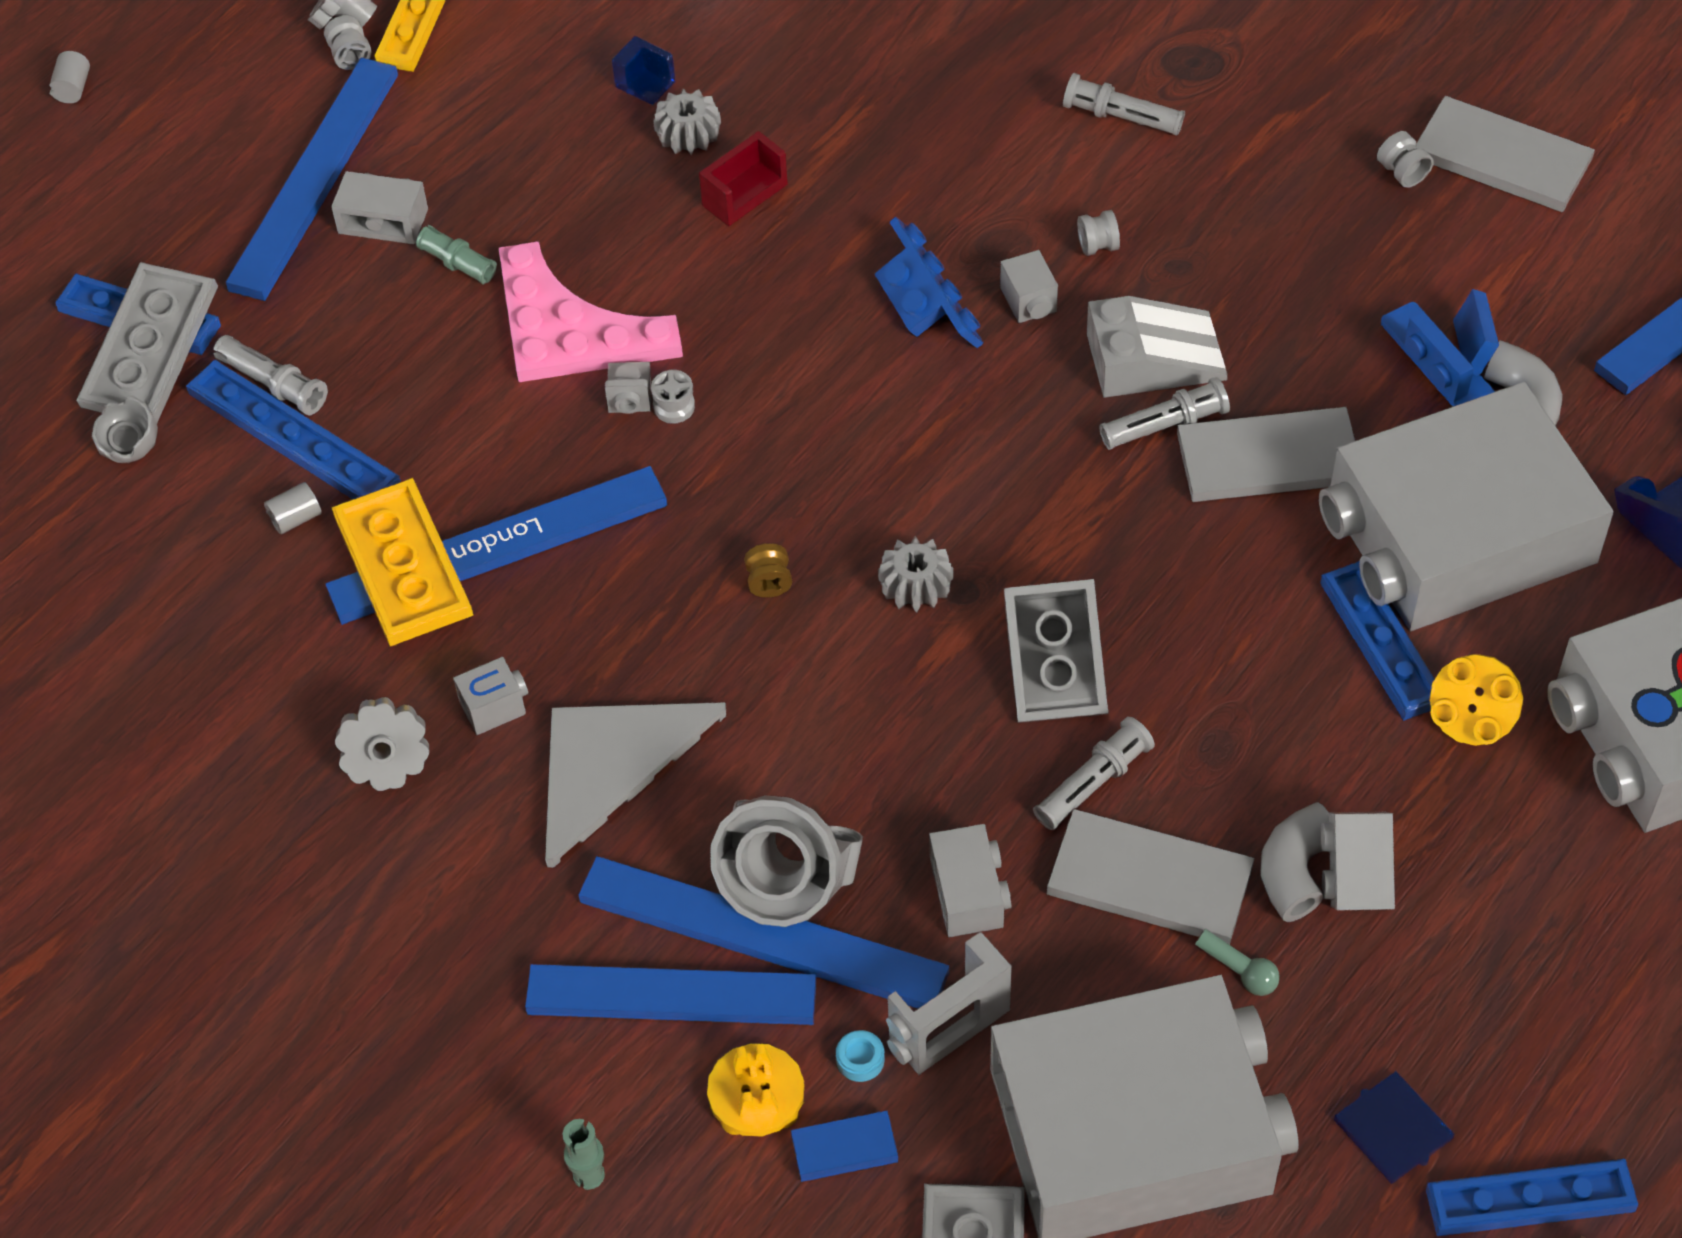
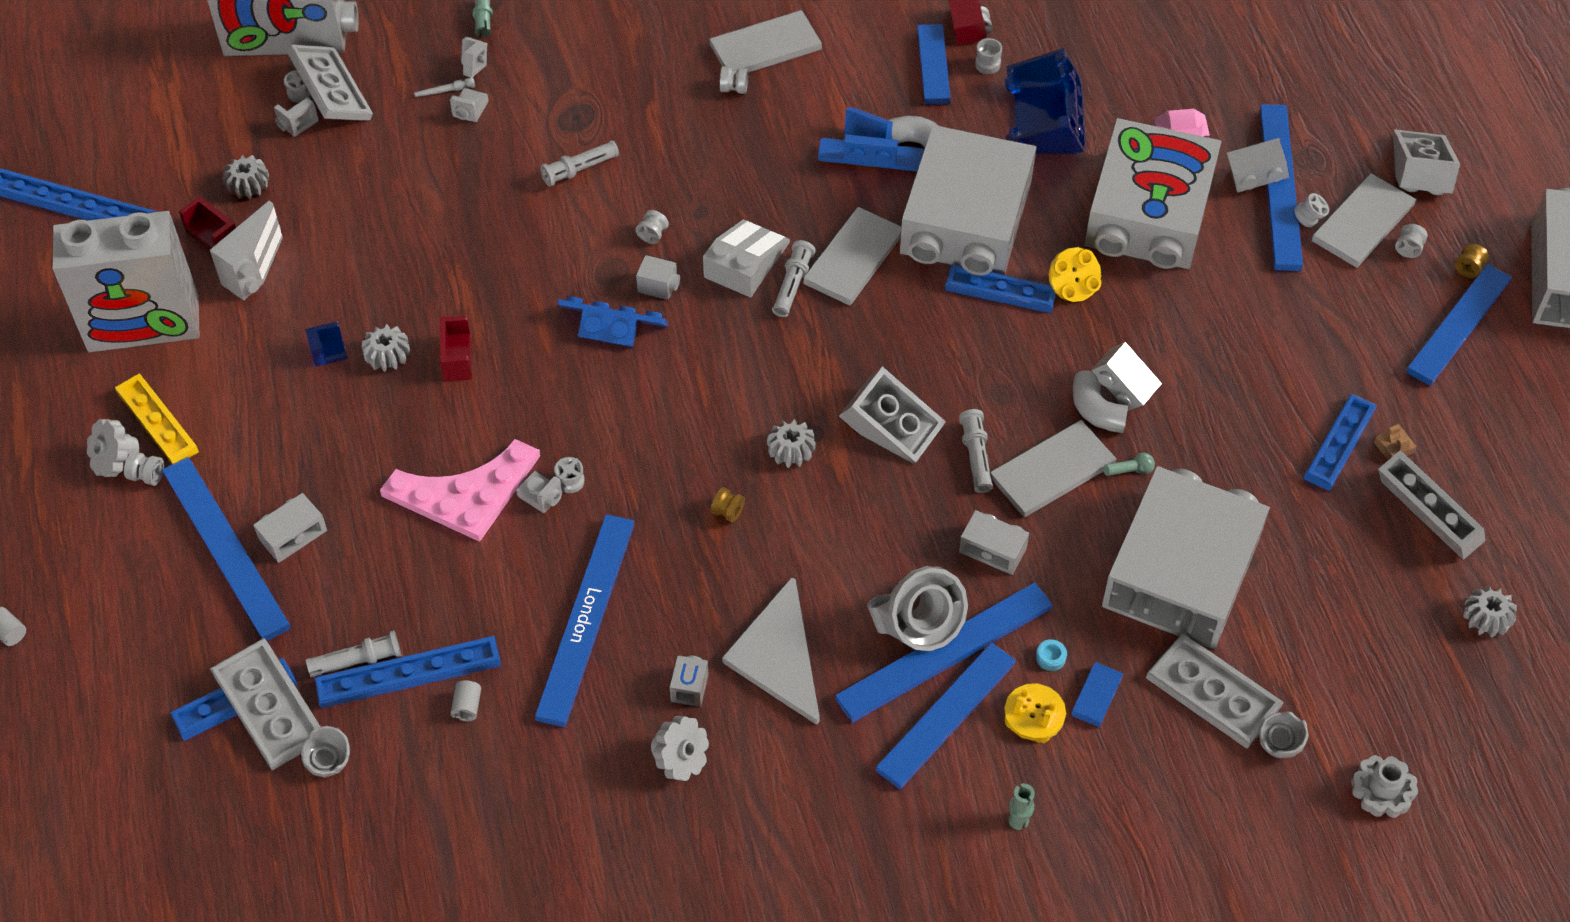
camera: 55 degrees left, 0 degrees up
(402, 562) = (559, 668): yellow tile -> none
(456, 254) = (363, 513): sand green pin -> none
(985, 983) = (1067, 571): light grey window -> none
(1394, 1127) = (1263, 468): clear blue piece -> none

